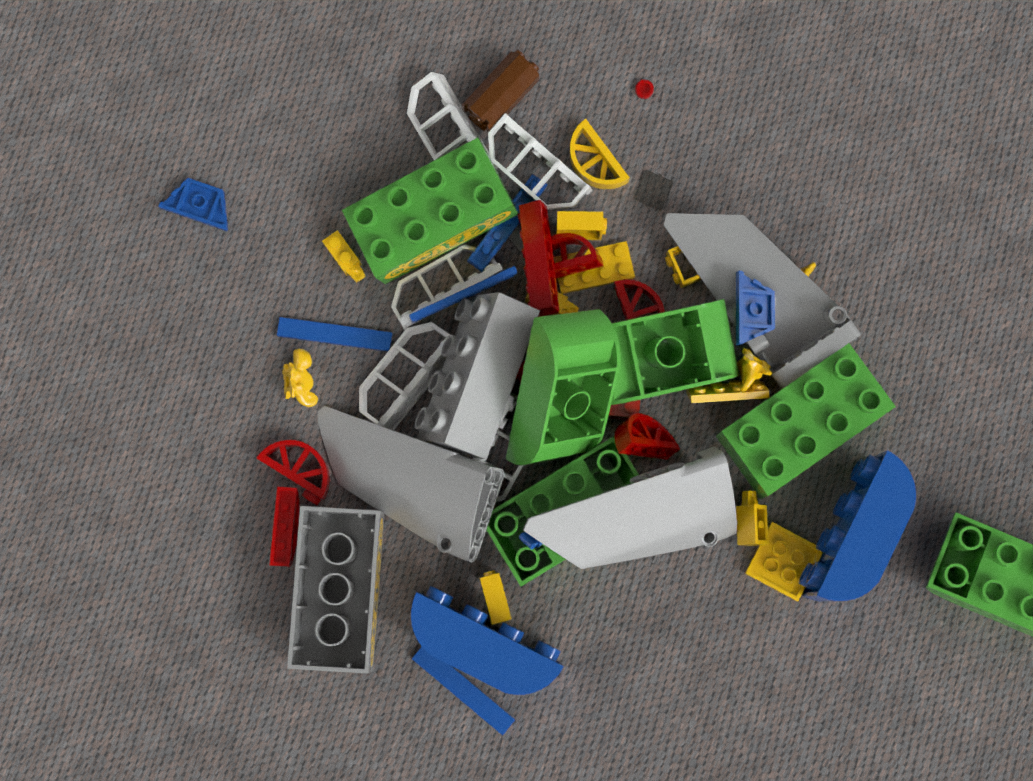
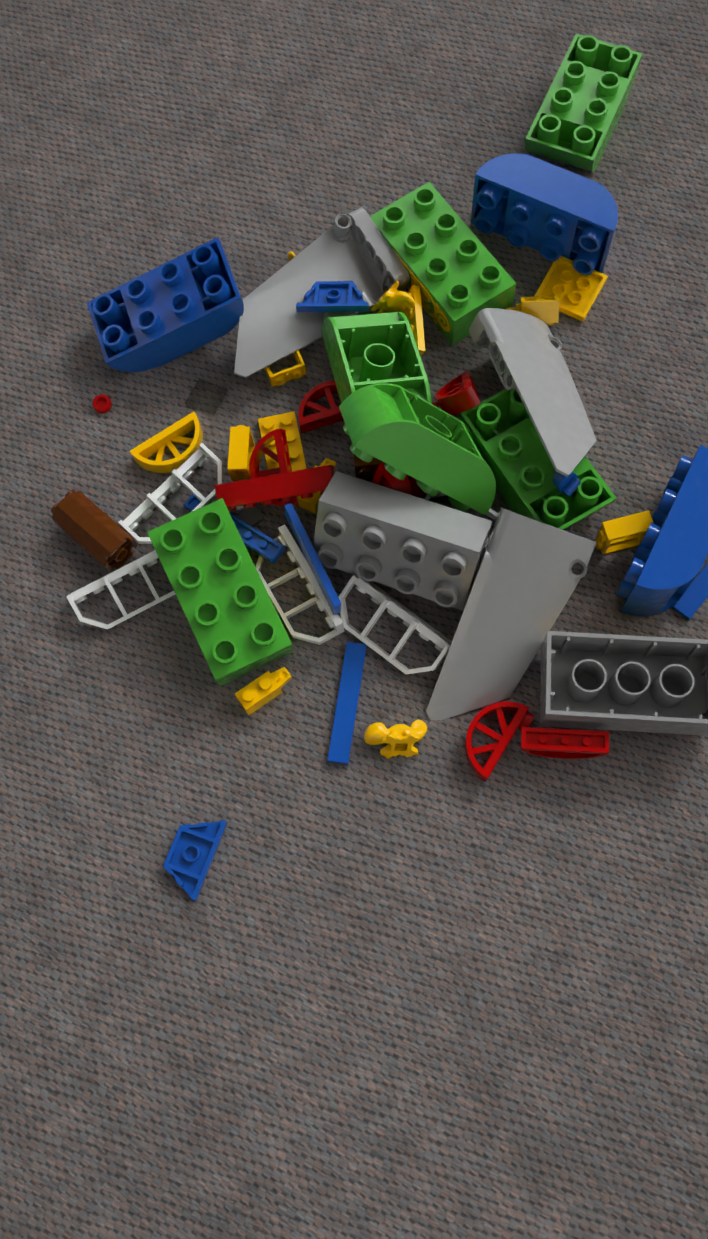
camera: 85 degrees left, 10 degrees down
(737, 141) = (168, 310): none -> blue brick

